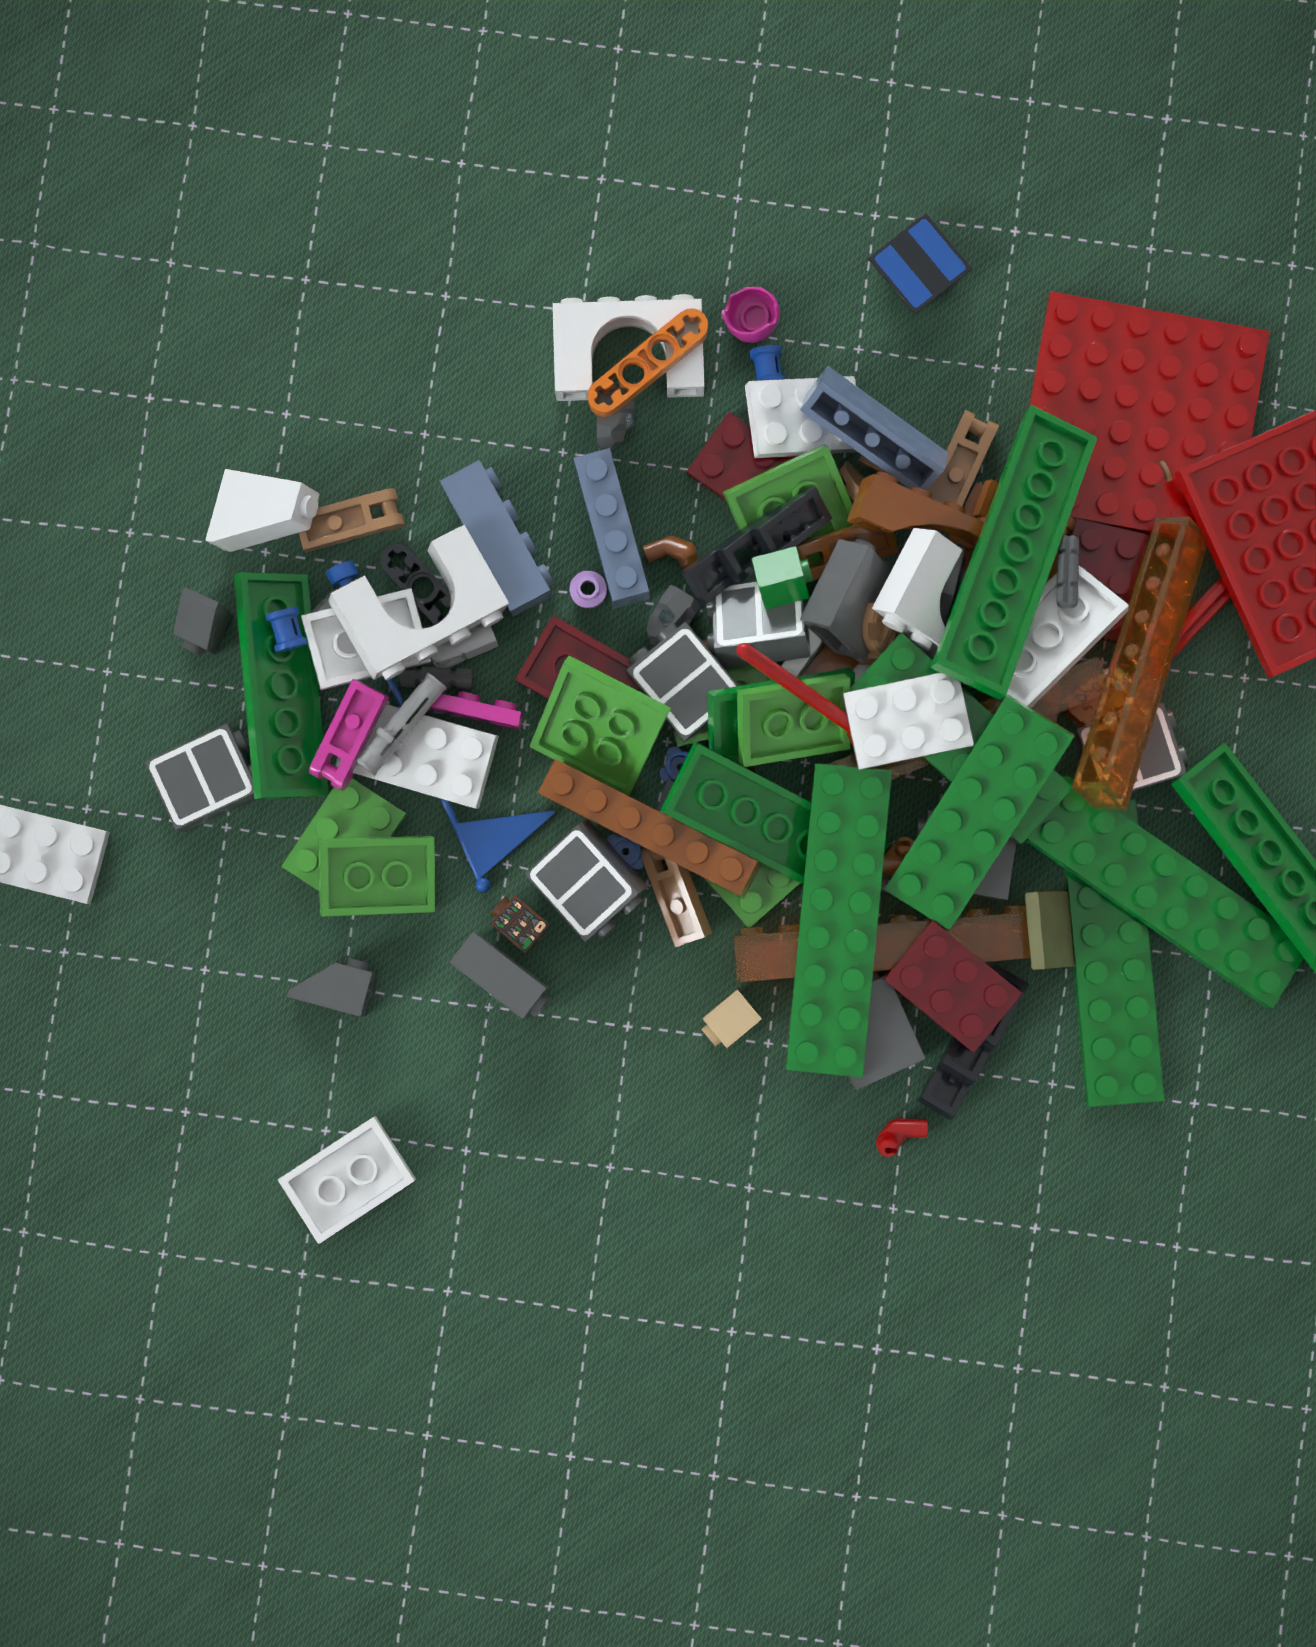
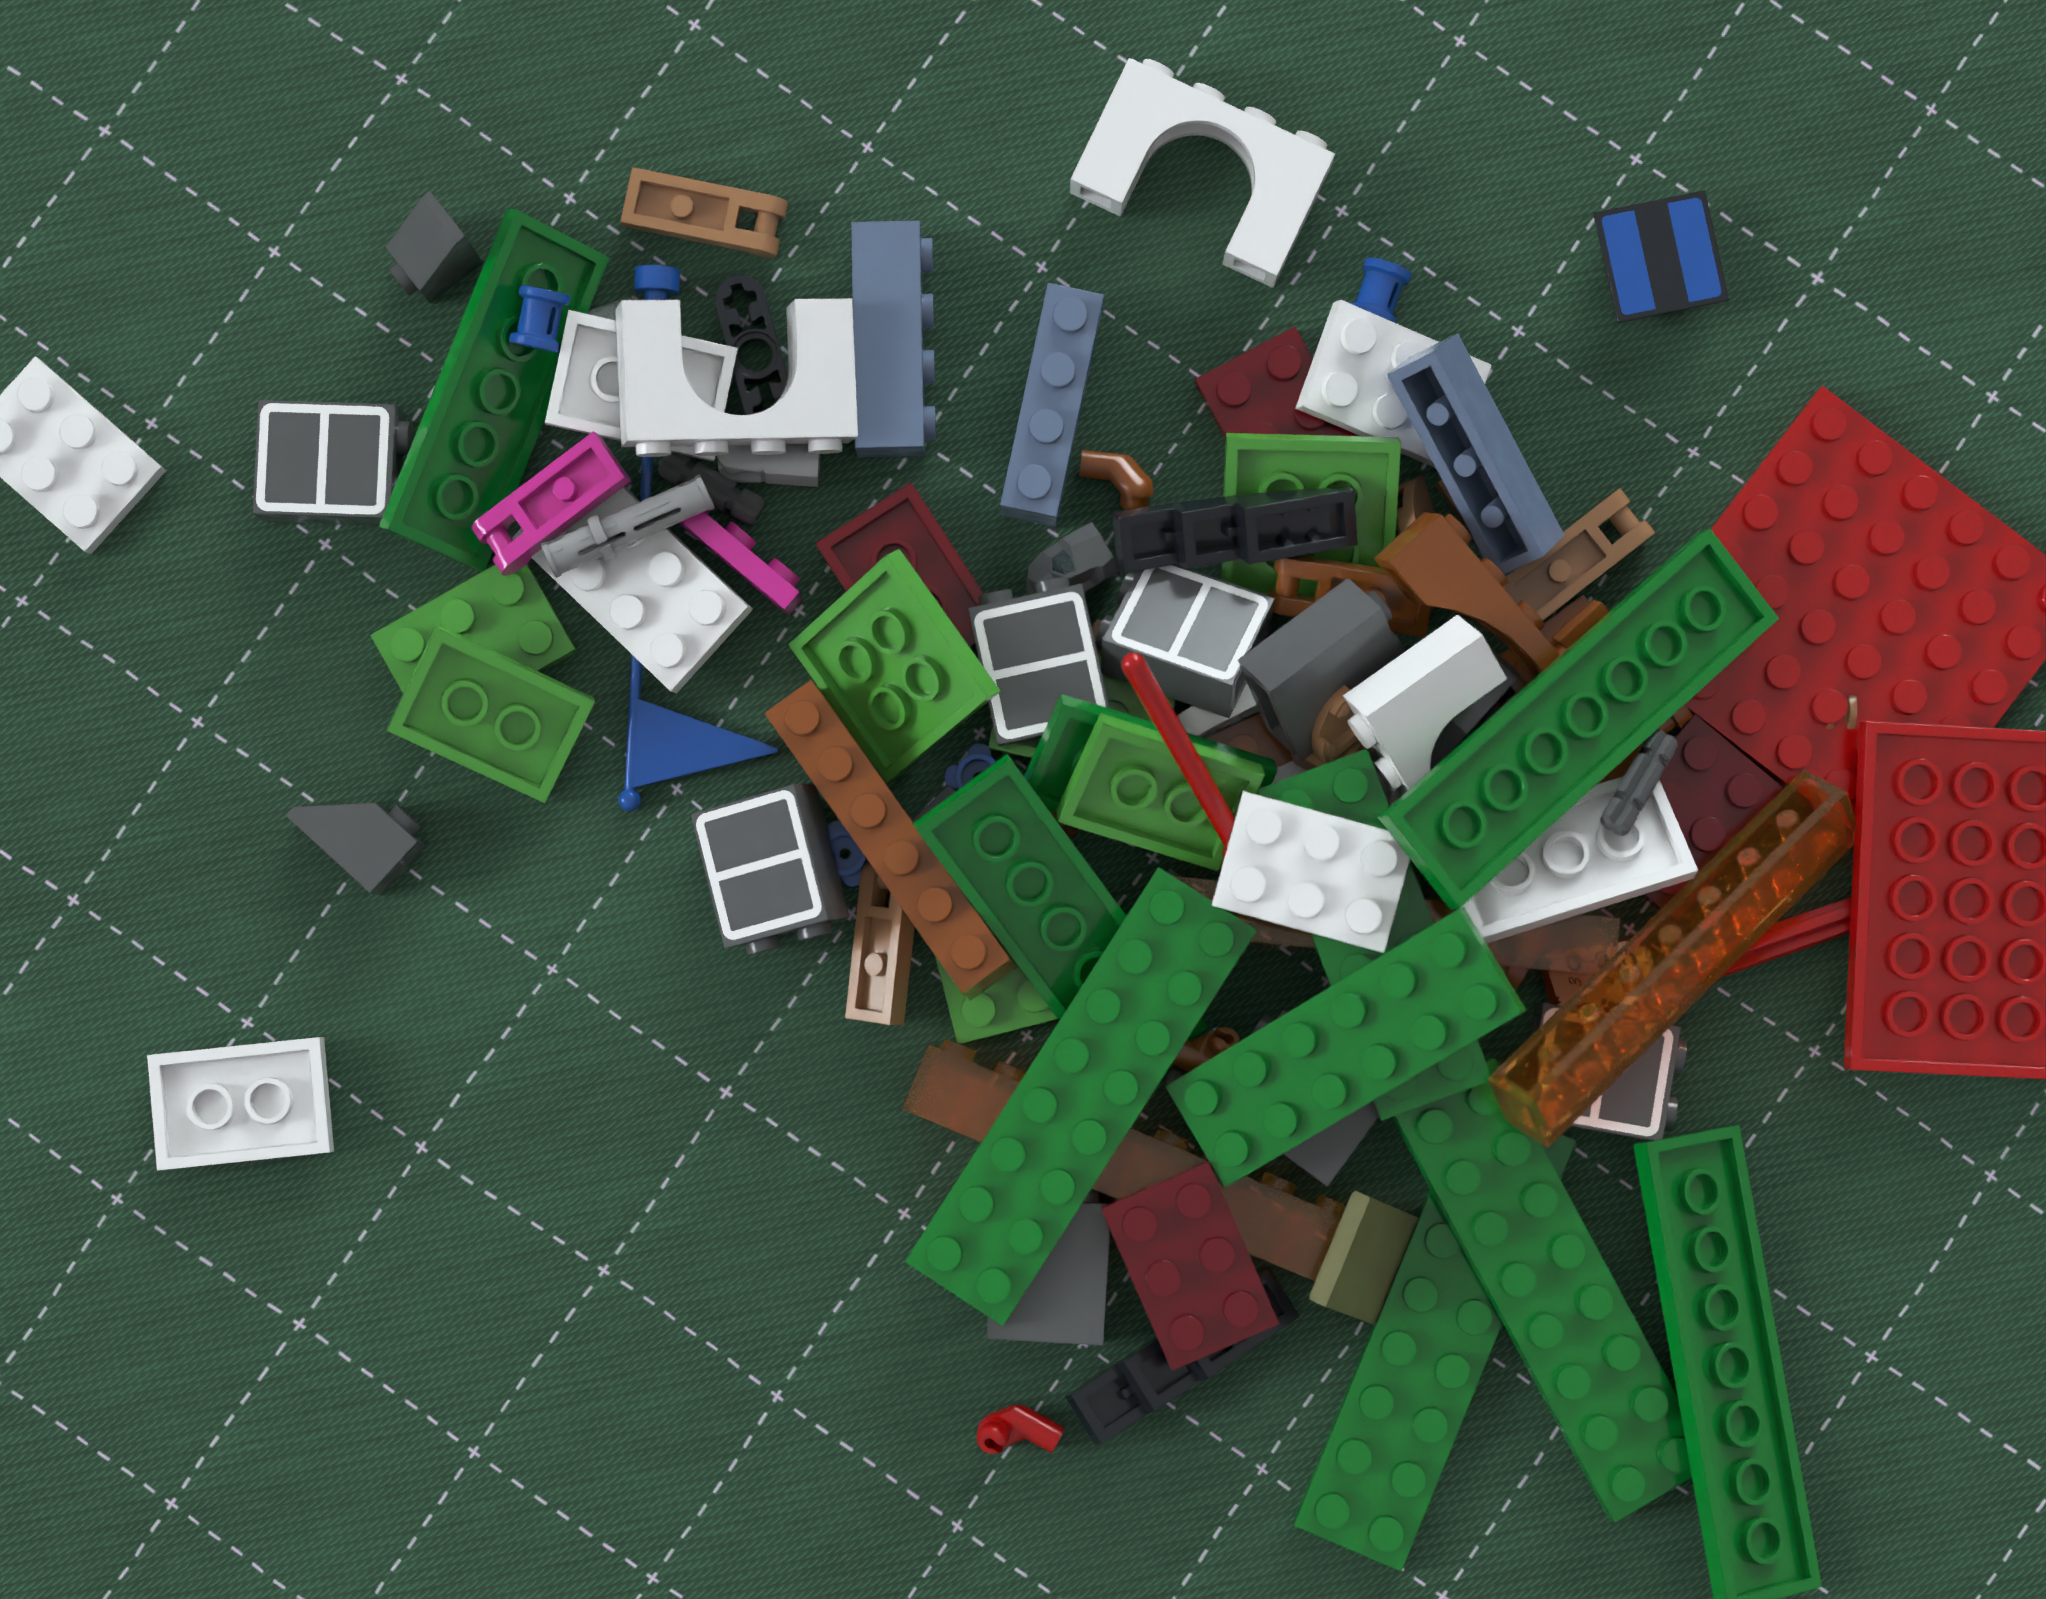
camera: 25 degrees right, 0 degrees up
(259, 510) = (587, 138): white slope -> none
(501, 976) = (587, 936): dark grey brick -> none
(519, 923) = (650, 877): brick -> none
(595, 598) = (983, 488): lavender plate -> none
(612, 429) = (1134, 253): dark grey rock -> none
(652, 367) = (1217, 212): orange beam -> none
(730, 1020) = (866, 1155): tan brick -> none
(751, 314) = (1394, 209): dark pink hair -> none
(782, 577) = (1244, 590): brick -> none

